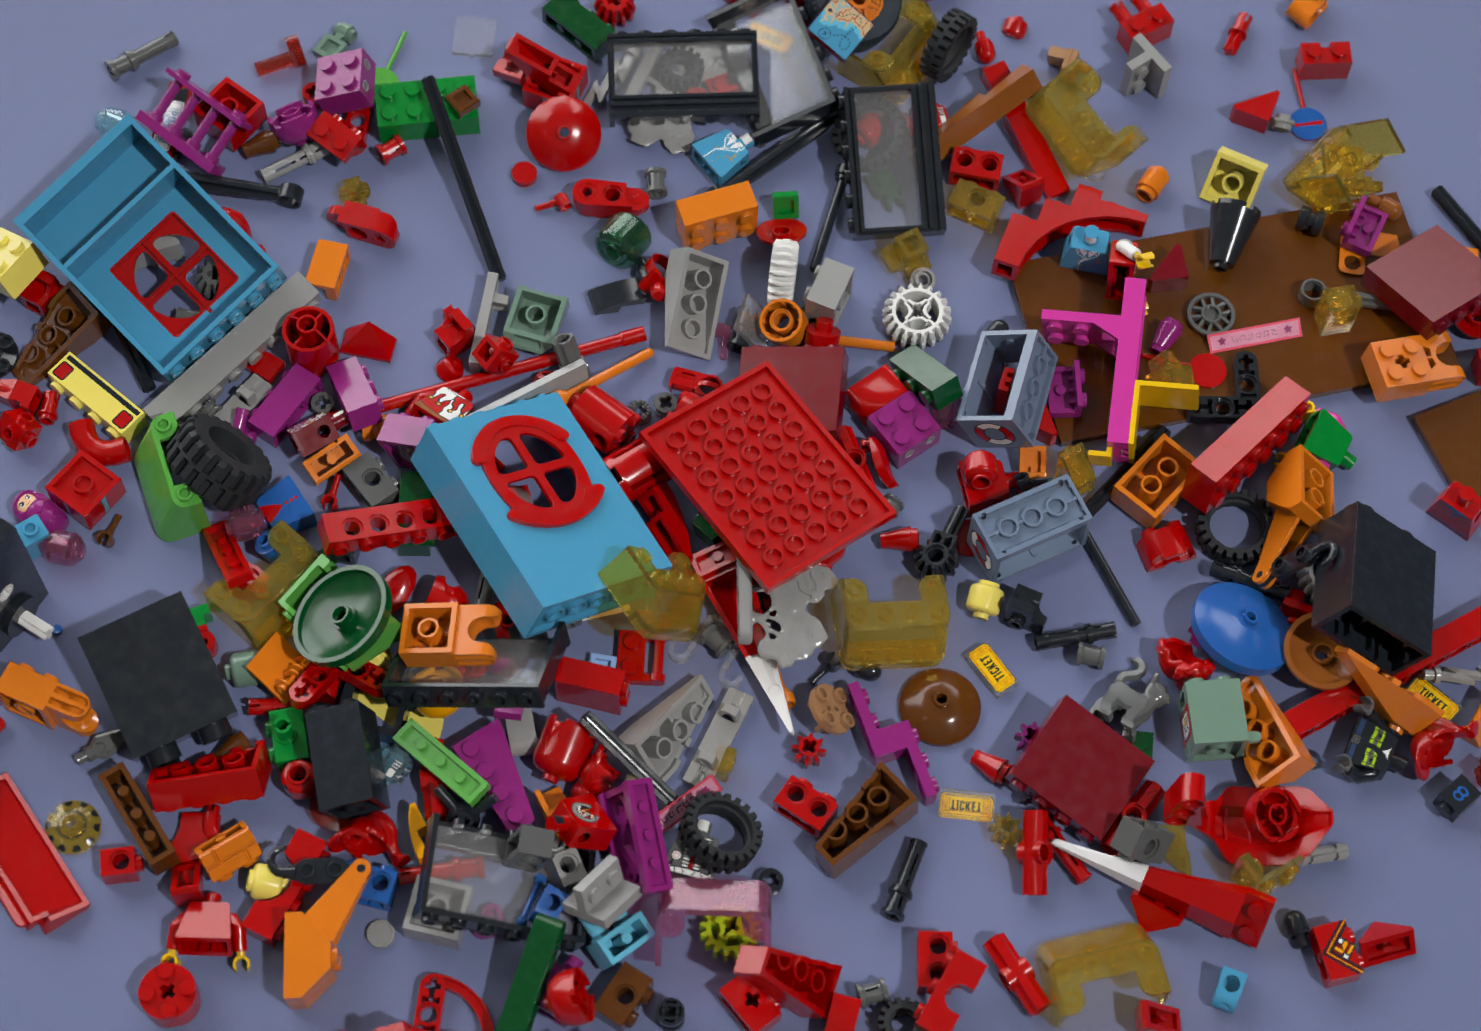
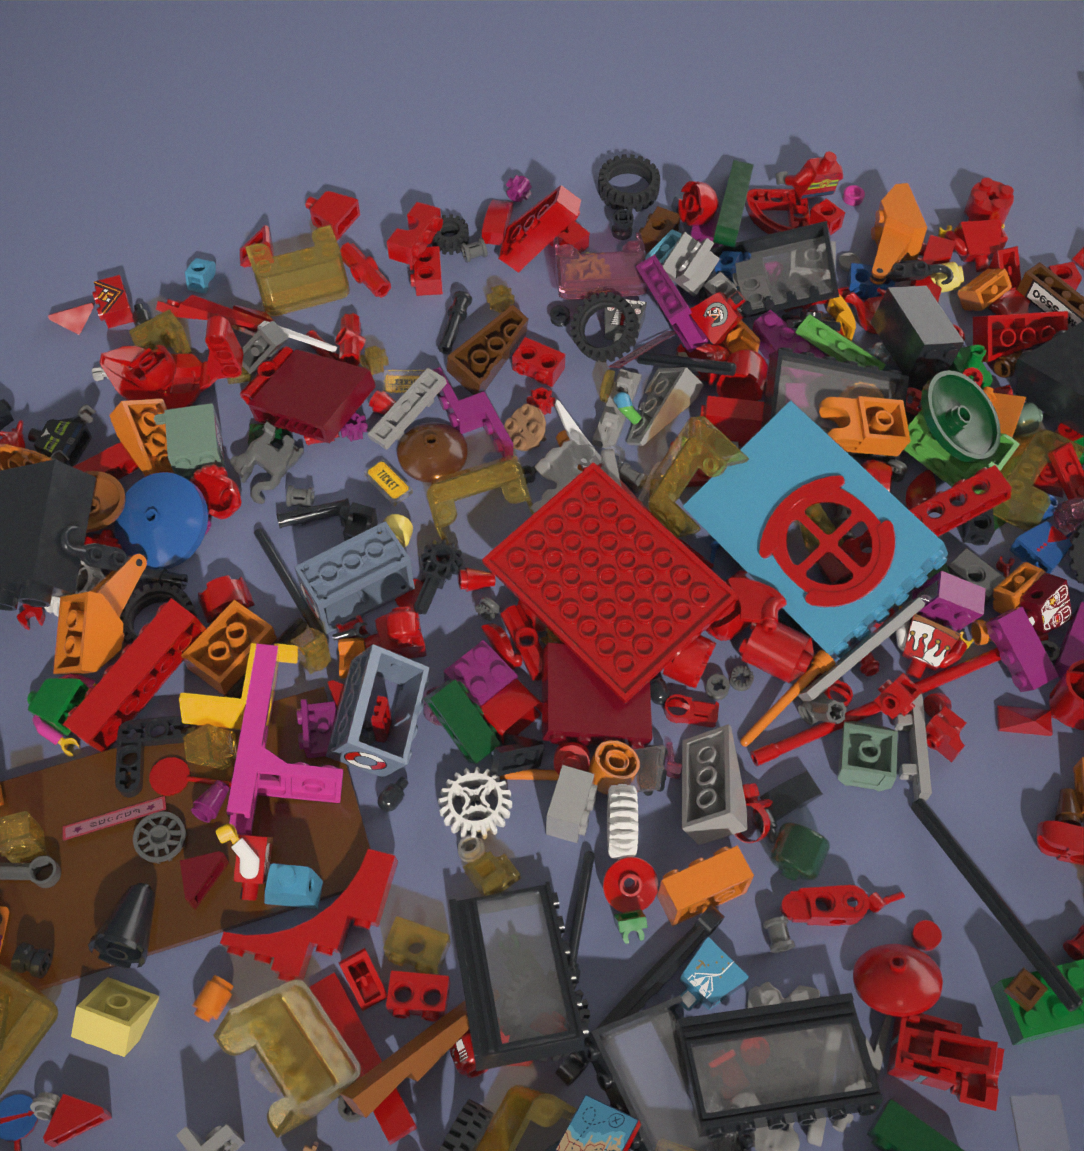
camera: 175 degrees right, 5 degrees down
(360, 255) = (1068, 808): none -> reddish brown cone
(394, 987) = (827, 212): none -> red brick
(617, 442) = (757, 602): none -> red arm
(710, 725) = (626, 407): none -> arm
(836, 907) = (500, 298): none -> clear yellow gear
(869, 353) = (517, 755): none -> black slope
(967, 745) = (407, 408): none -> light grey hinge

